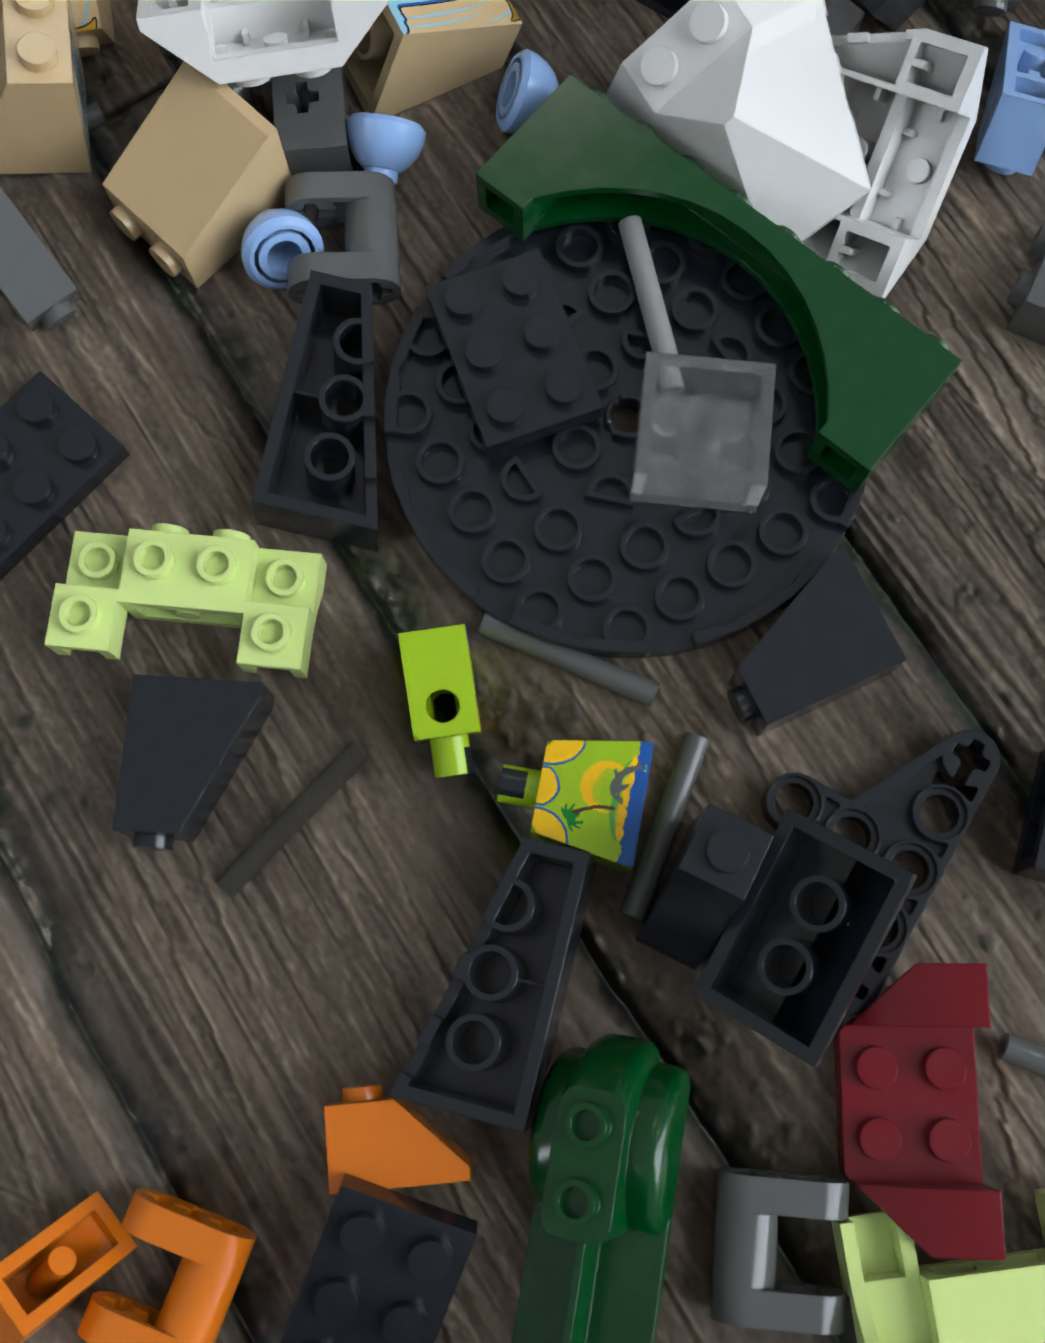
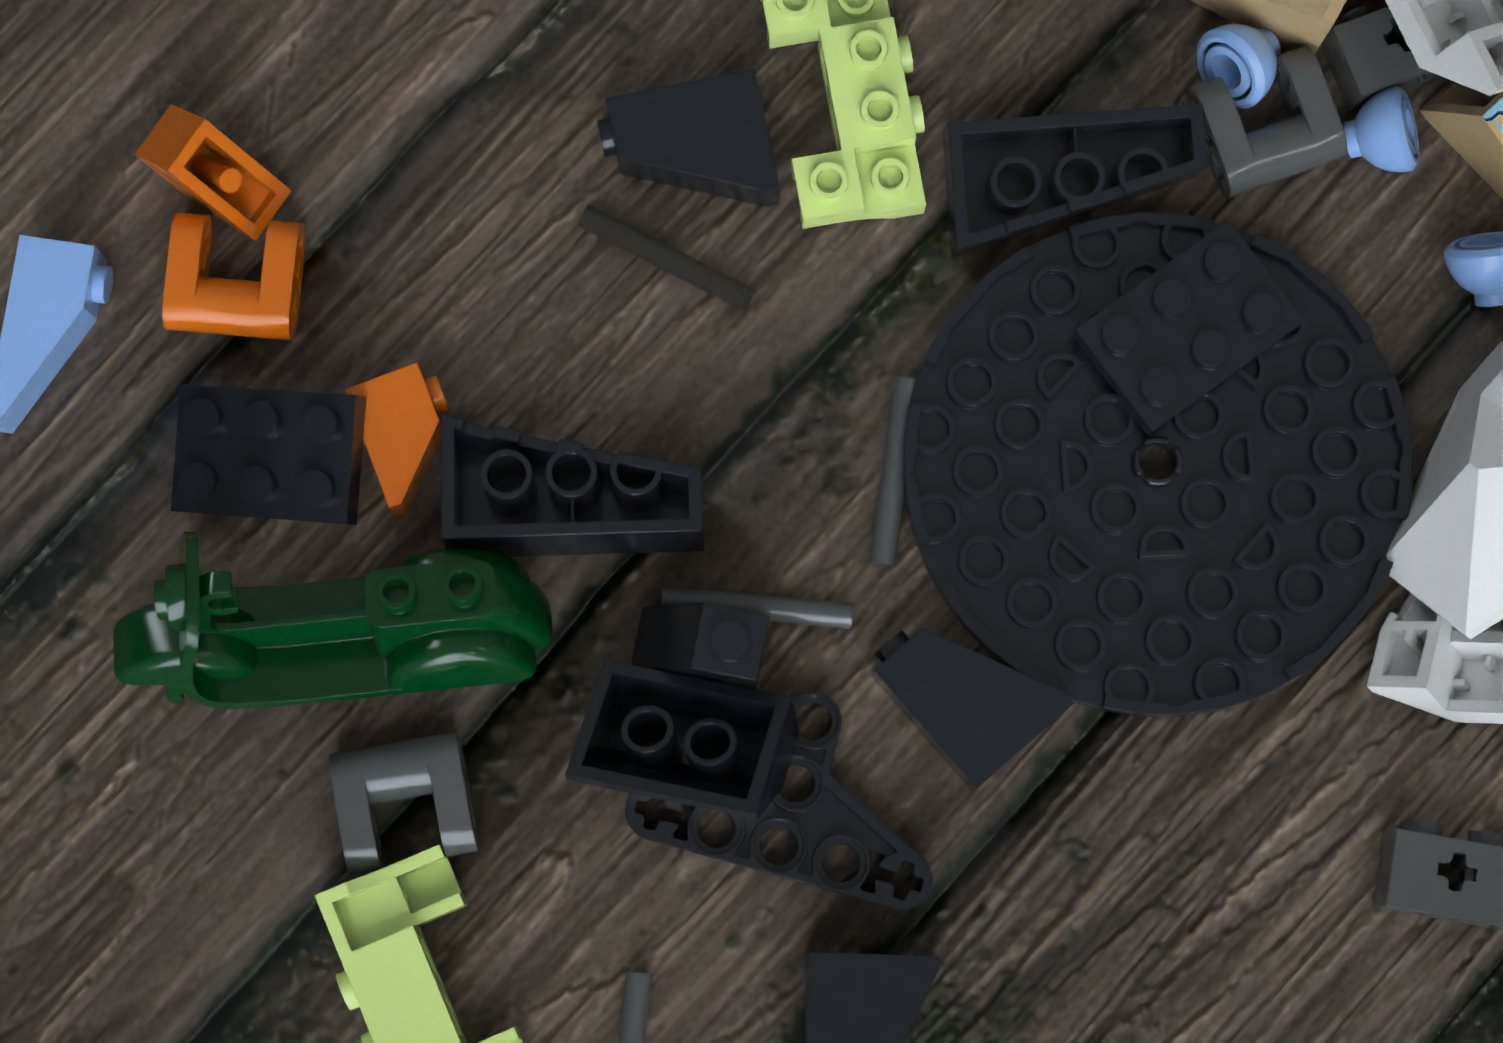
camera: 70 degrees right, 5 degrees up
(437, 665) = (844, 354): lime torso -> none
(585, 796) = (760, 521): torso -> none
(594, 163) = (1413, 345): dark green arch -> none
(647, 285) = (1284, 450): light grey piece -> none
(703, 432) = (1144, 529): clear brick -> none
(914, 1110) = (562, 899): dark red piece -> none

